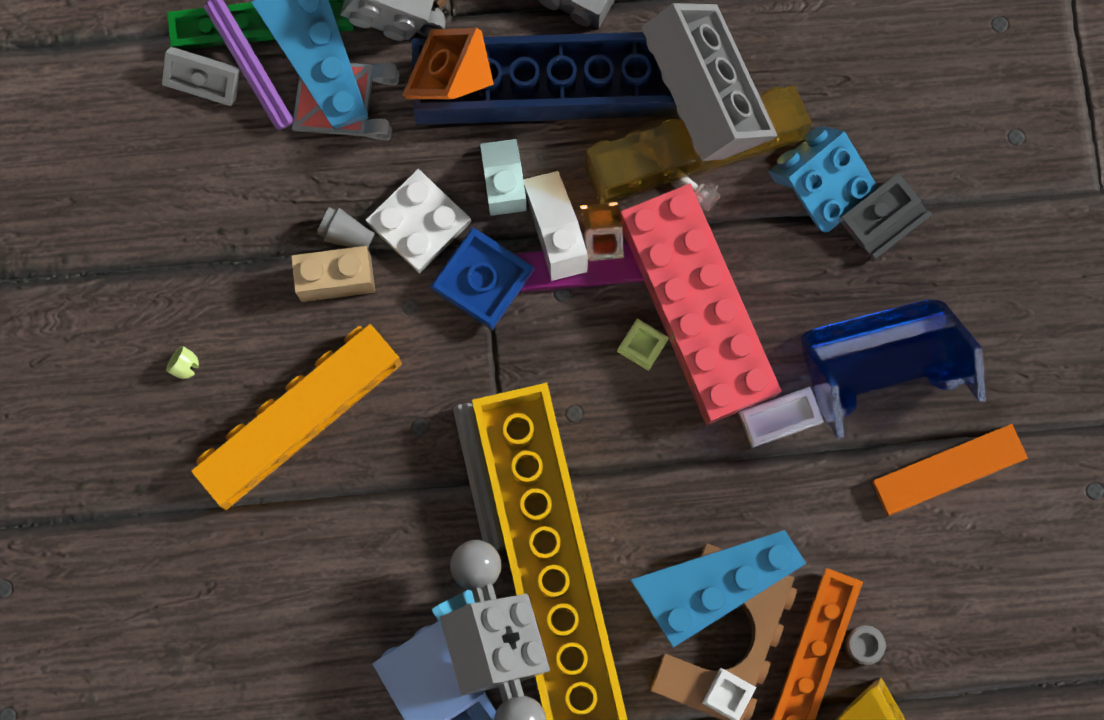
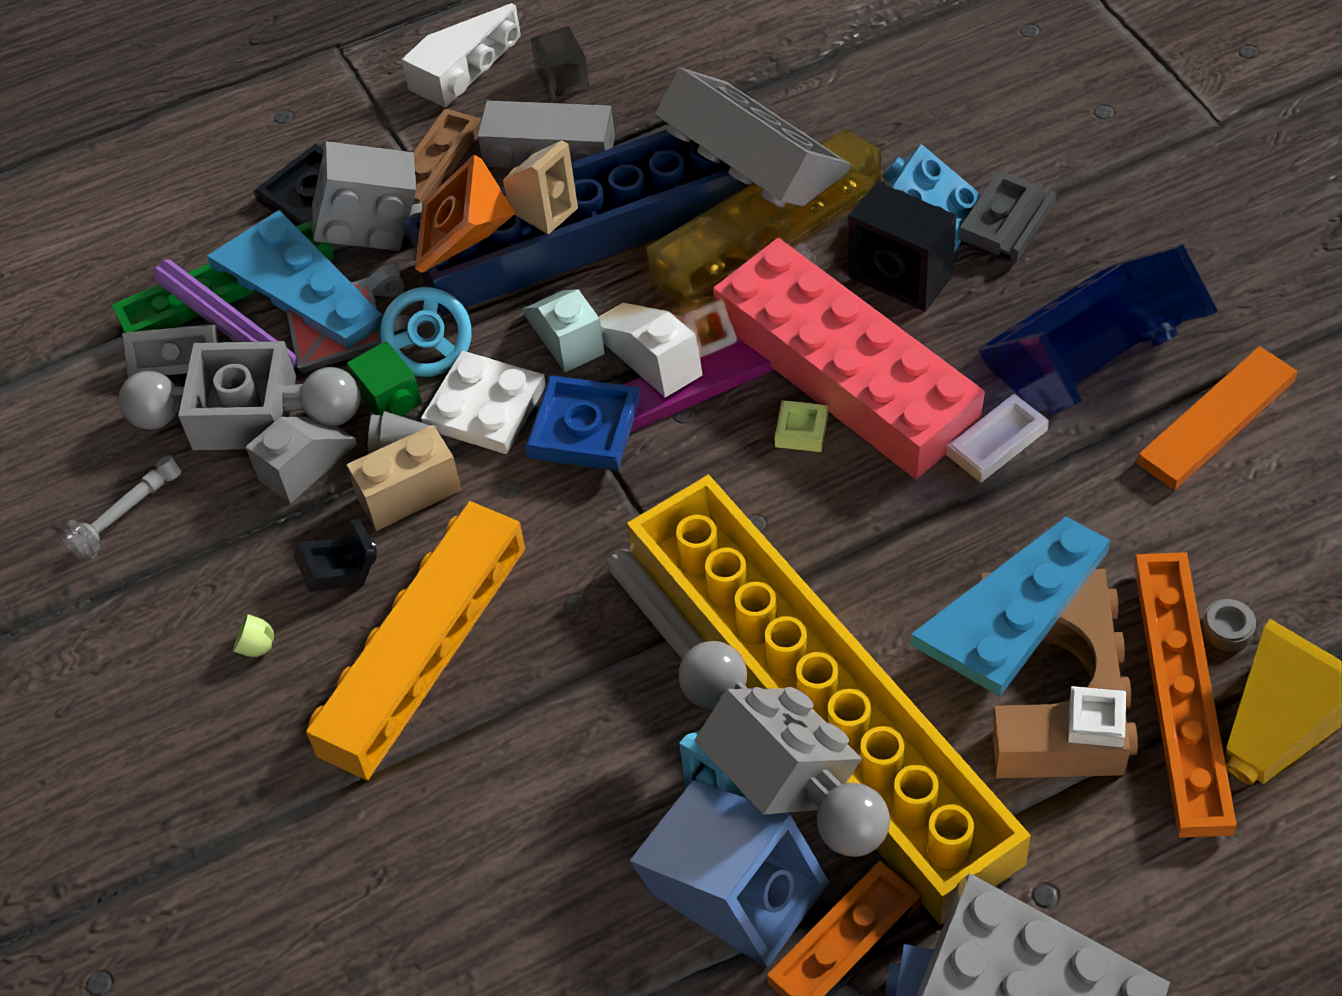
camera: 15 degrees left, 25 degrees down
(89, 225) = (84, 538): none -> light grey piece
(228, 126) = (237, 394): none -> light grey brick
(261, 325) = (338, 561): none -> black bracket
(267, 213) = (296, 454): none -> light grey slope
(349, 178) = (385, 381): none -> green brick
(391, 155) = (429, 315): none -> medium azure piece
(523, 66) = (543, 188): none -> tan slope
(785, 222) = (901, 245): none -> black brick

